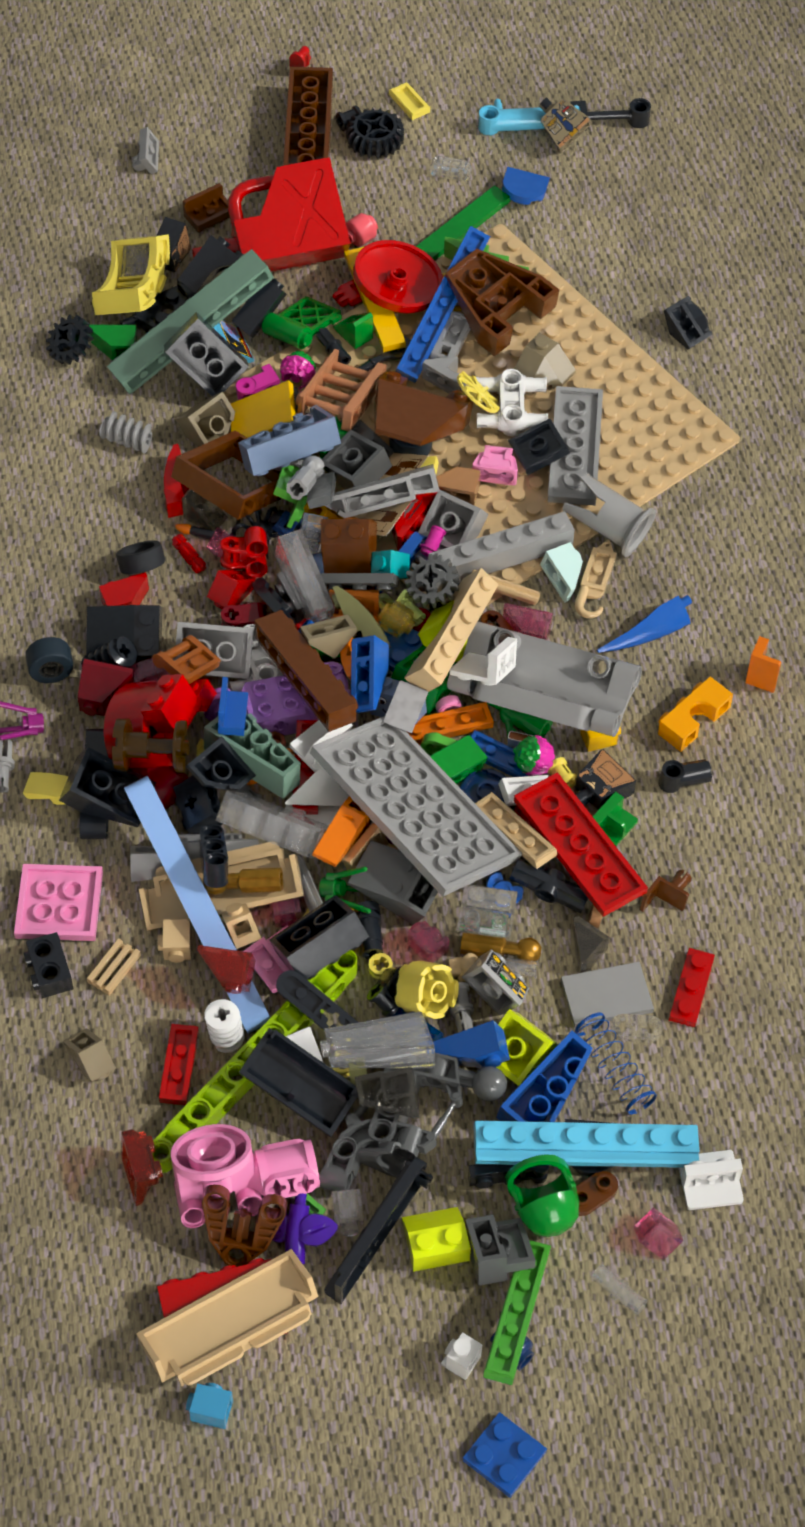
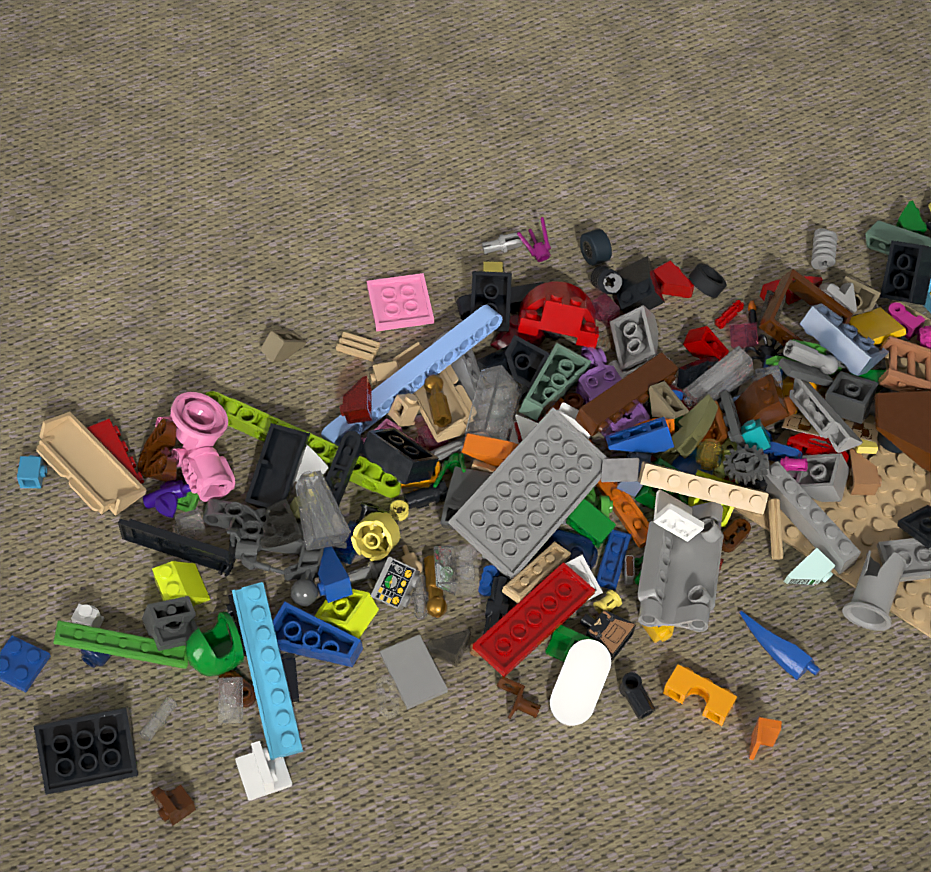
camera: 75 degrees right, 0 degrees up
(51, 965) = (347, 307): black brick -> none
(69, 339) = (895, 193): black gear -> none
(99, 684) = (582, 277): dark red slope -> none
(139, 1163) = (201, 381): clear red slope -> none
(140, 745) = (517, 294): dark brown piece -> none
(179, 1064) = (288, 400): red plate -> none
(191, 665) = (608, 322): dark orange plate -> none
(212, 427) = (843, 295): none -> light grey slope
(213, 856) = (447, 372): black beam -> none
(224, 1025) = (317, 413): white piece -> none
(232, 711) = (575, 353): blue panel -> none
(242, 614) = (678, 354): dark red piece -> none
(247, 552) = (734, 337): red piece -> none
(427, 941) = (425, 535): clear pink brick -> none
(448, 703) = (646, 509): bright pink tile -> none
(496, 465) = (894, 499): bright pink piece -> none
(528, 620) = (744, 555): clear pink slope -> none
(534, 755) = (611, 574): piece -> none
(595, 578) = (813, 597): tan plate -> none
(613, 1198) = (230, 700): none -> clear plate
(633, 1111) = (319, 704): blue piece -> none
(645, 1379) = (86, 750): none -> black slope
(658, 1233) = (208, 739): clear pink panel -> none
(661, 822) = (580, 682): none -> white tile
(691, 987) = (435, 733): red plate -> none
(740, 1284) = (173, 804): none -> reddish brown brick

